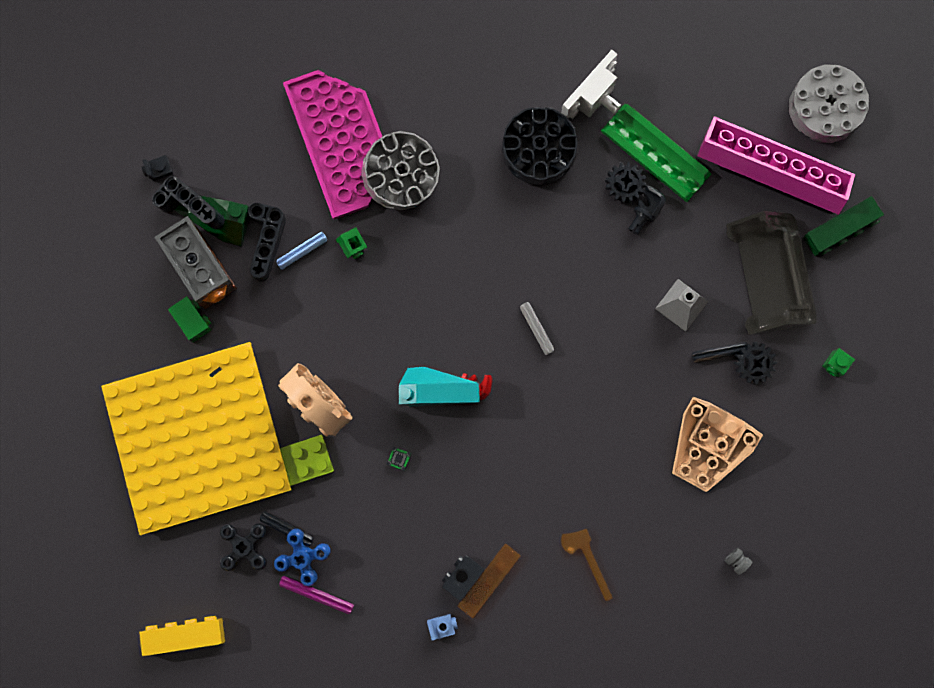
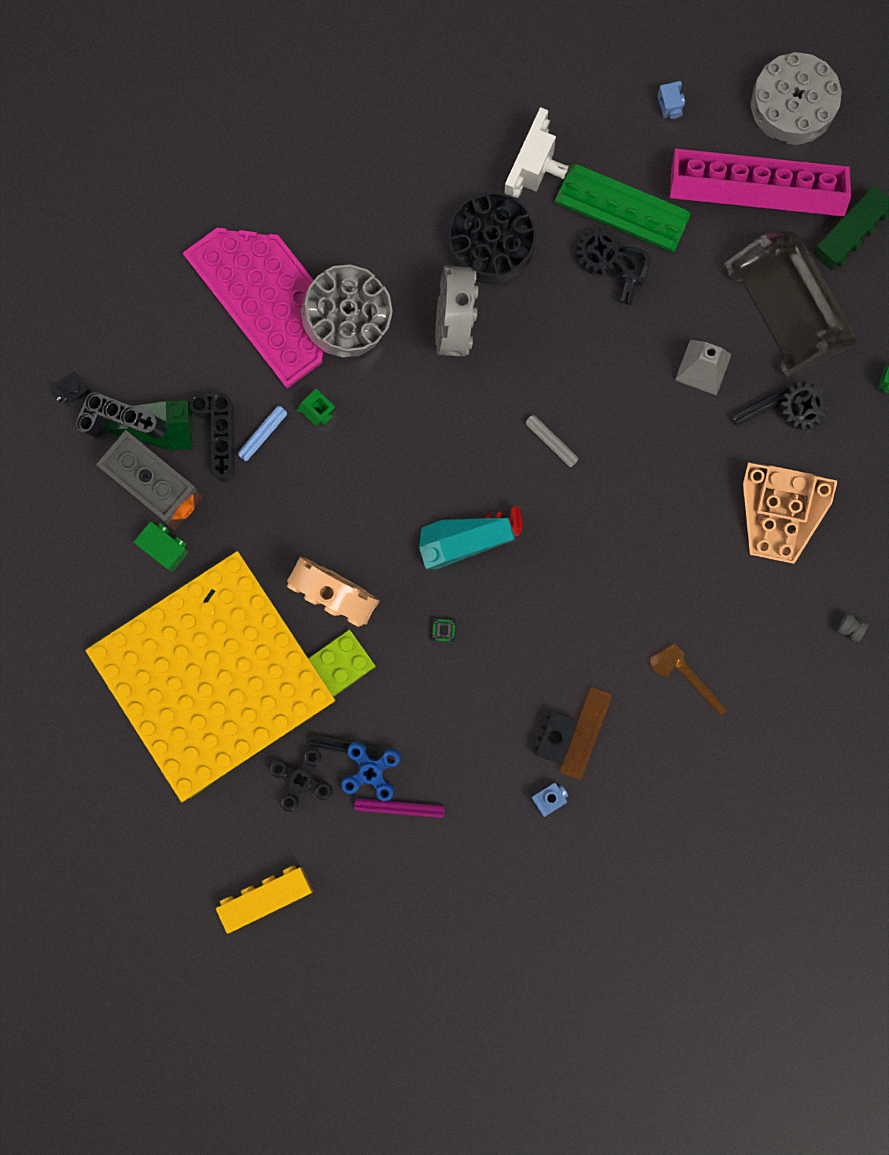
camera: 15 degrees left, 0 degrees up
(489, 198) = (456, 311): none -> light grey brick
(724, 74) = (671, 100): none -> medium blue brick

